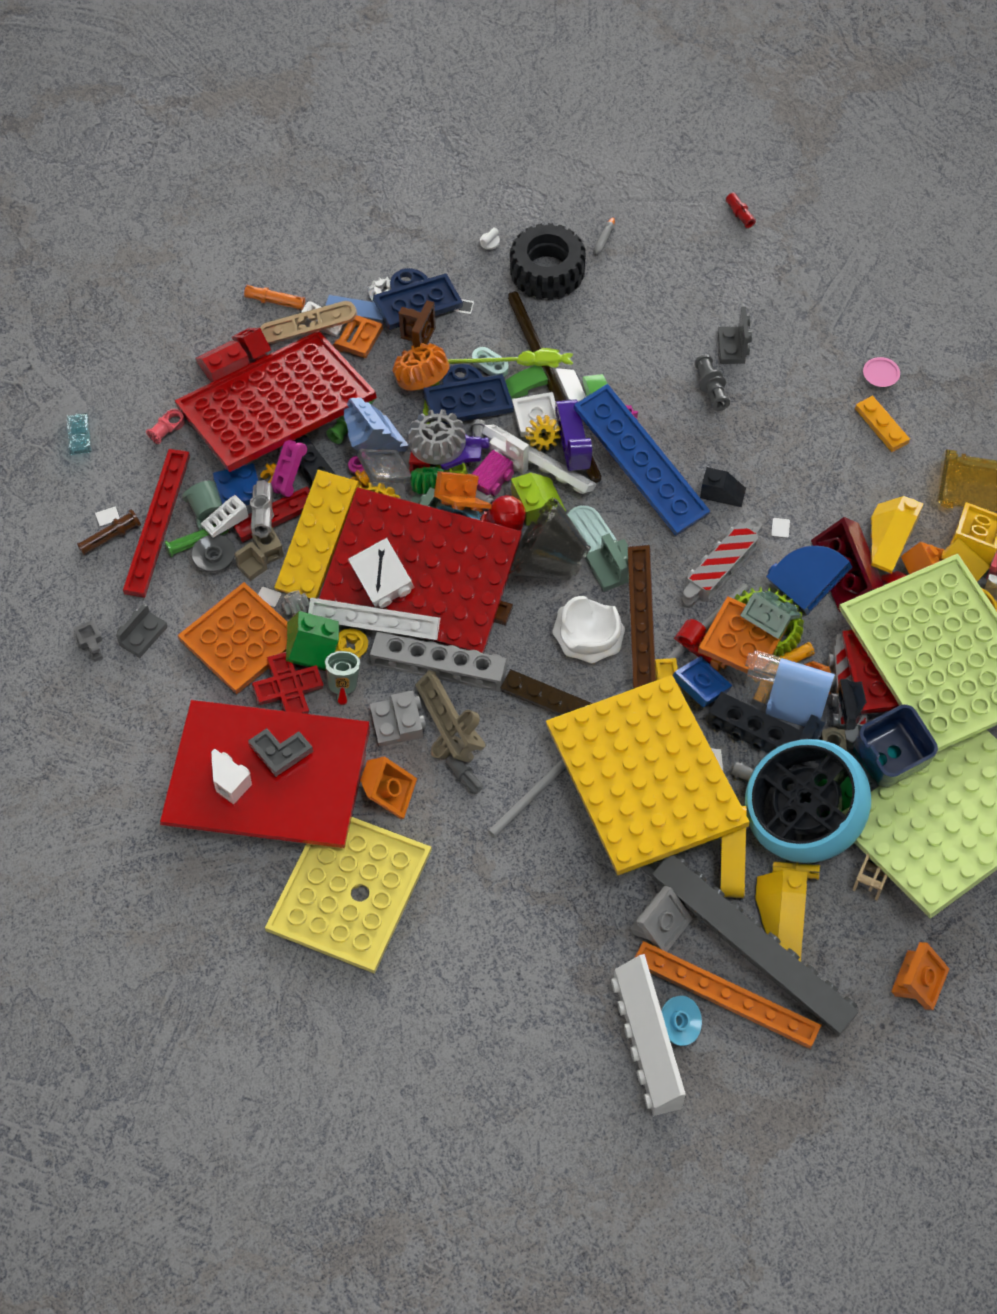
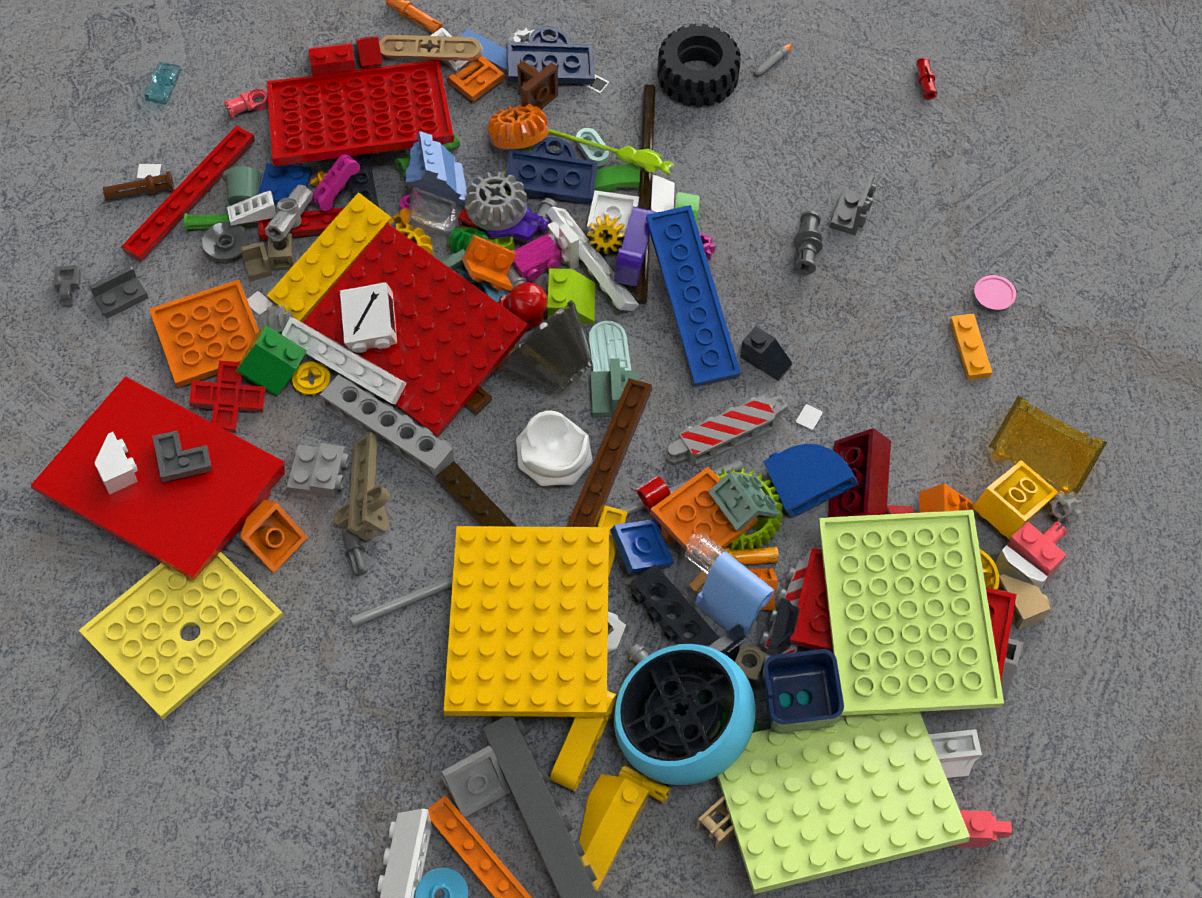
camera: 20 degrees right, 0 degrees up
(342, 674) = (283, 404): sand green hat -> none
(490, 240) = (655, 26): white plate -> none
(891, 530) = (922, 462): yellow wedge -> none
(974, 563) = (989, 524): yellow slope -> none

